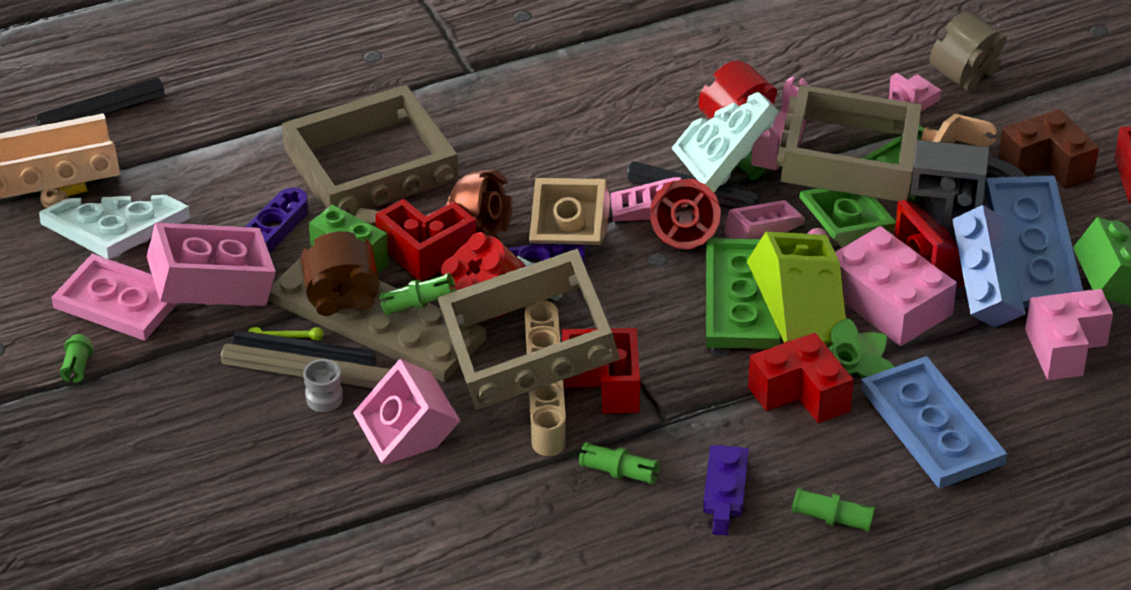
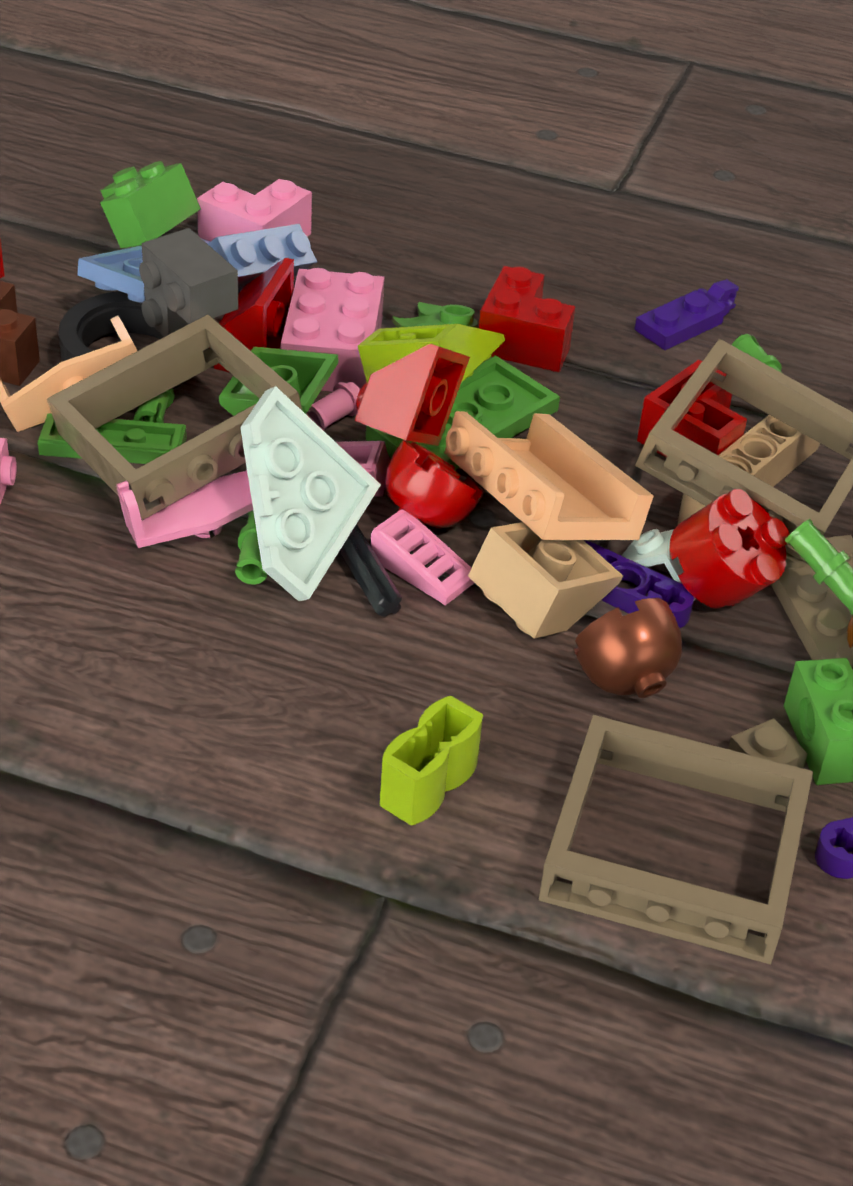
camera: 140 degrees left, 0 degrees up
(424, 241) = (739, 645): red brick -> none
(506, 98) = (430, 760): none -> lime brick
(635, 248) = (551, 480): none -> light nougat panel
(733, 85) = (185, 556): red brick -> none
(739, 209) = (413, 394): none -> slope
(833, 509) = (627, 249): bright green pin -> none
(933, 422) = (458, 249): medium blue plate -> none

